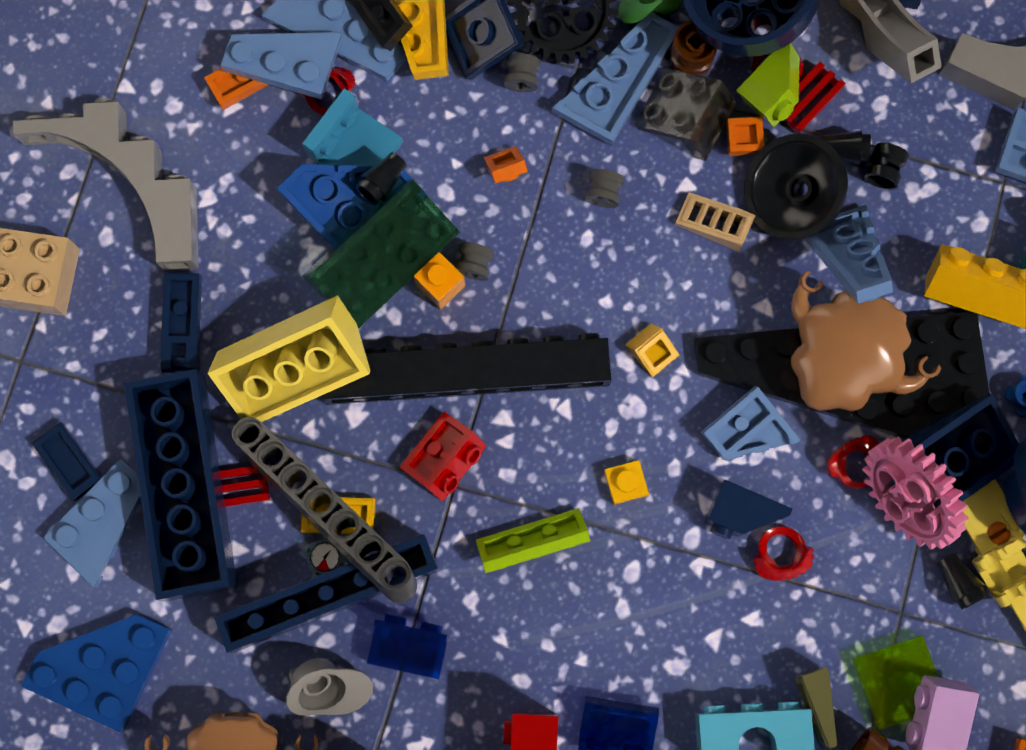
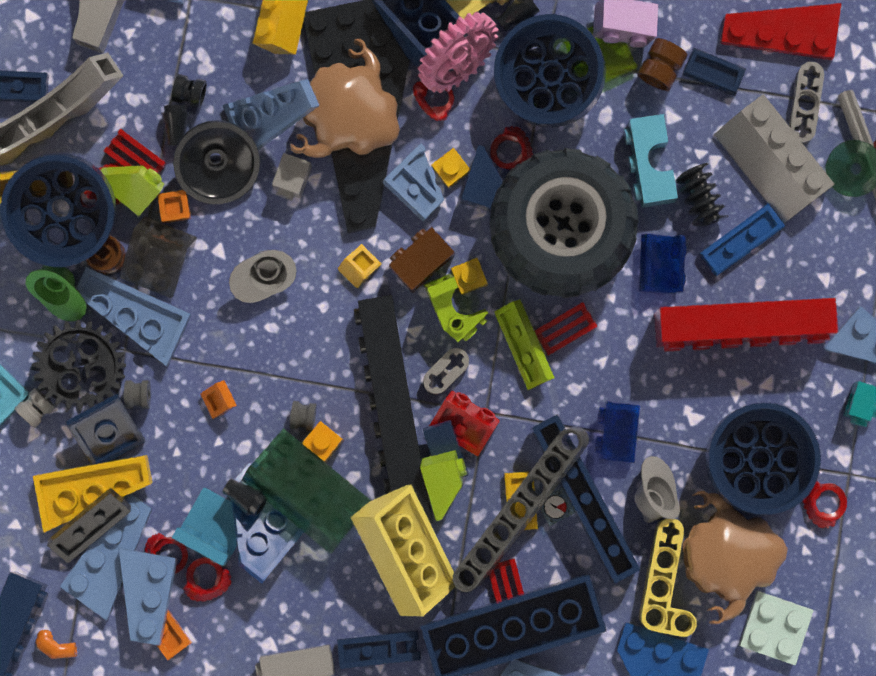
camera: 95 degrees left, 5 degrees up
(219, 689) = (668, 576): none -> light yellow beam
(280, 120) = (196, 592): none -> red piece
(374, 417) = (443, 480): none -> lime slope
(409, 428) = (442, 439): none -> dark blue tile
(516, 434) = (441, 366): none -> light grey beam
(534, 567) = (585, 317): none -> red tile
(603, 439) = (440, 294): none -> lime tile
(604, 188) = (230, 316): dark grey wheel -> none
(649, 227) = (262, 276): none -> light grey piece
(653, 423) = (420, 259): none -> reddish brown brick
(719, 209) = (257, 228): tan slope -> none
(737, 620) = (570, 179): none -> black wheel
(765, 474) = (450, 168): none -> yellow plate
(770, 276) = (291, 177): none -> light grey brick
(816, 695) = (616, 116): olive slope -> none
(898, 565) = (513, 61): none -> dark blue wheel

